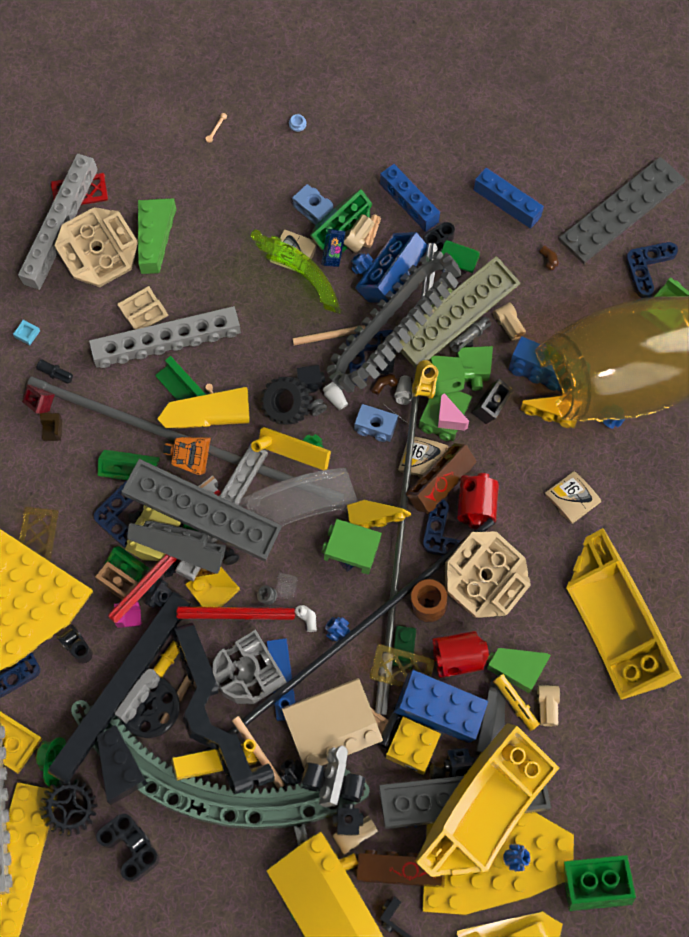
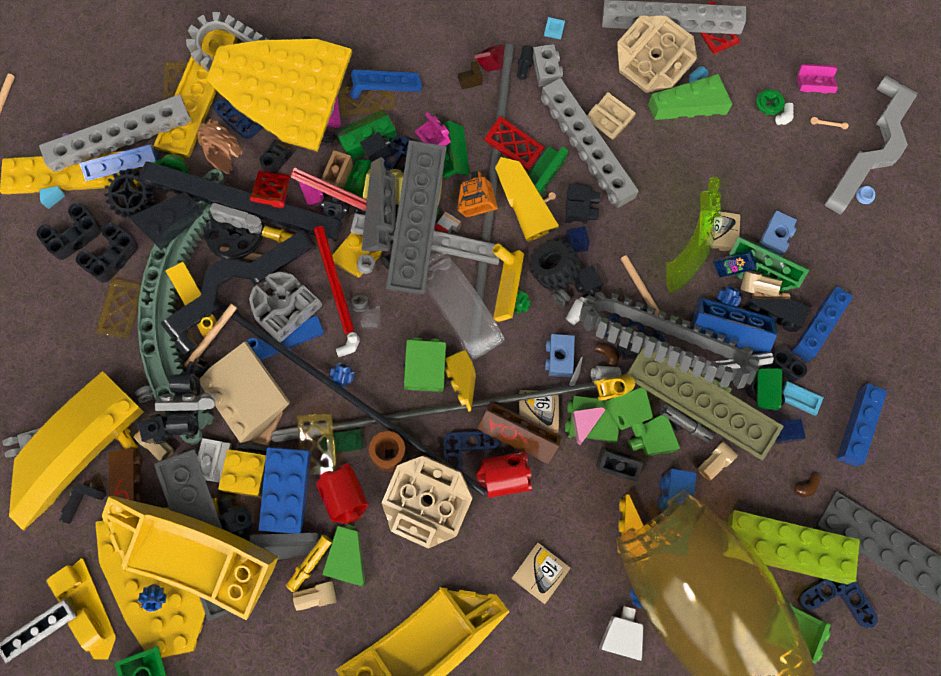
camera: 75 degrees right, 5 degrees up
(28, 810) = (120, 161): none -> piece
(30, 510) = (384, 81): none -> blue piece
(37, 900) = (51, 196): none -> medium azure slope
(38, 698) = (218, 145): none -> nougat head
(65, 355) = (544, 66): none -> light grey brick
(80, 545) = (351, 135): none -> green slope
(98, 881) = (73, 238): none -> black beam
(105, 534) = (376, 147): none -> black brick
(107, 477) = (432, 132): none -> dark pink bracket
(118, 663) = (266, 198): none -> red window
(126, 216) = (697, 73): none -> dark azure arm
(142, 418) = (512, 129): none -> red window
(169, 121) = (817, 78): none -> dark pink bracket
(183, 163) = (767, 96): none -> green gear
(197, 158) = (787, 116): none -> white arm
(211, 838) = (130, 320): none -> clear yellow window
(224, 577) = (365, 268): none -> light grey bush
(228, 364) = (579, 202): none -> black hips
(263, 88) = (889, 154): none -> light grey beam
(264, 374) = (578, 239): none -> clear blue brick
(388, 772) = (212, 458): none -> white plate
(391, 221) = (785, 312): none -> black slope
(472, 235) = (802, 398): none -> medium azure tile
(500, 250) = (791, 432): none -> clear blue brick
(602, 278) = (799, 547): none -> lime brick
(643, 443) = (624, 635): none -> white torso

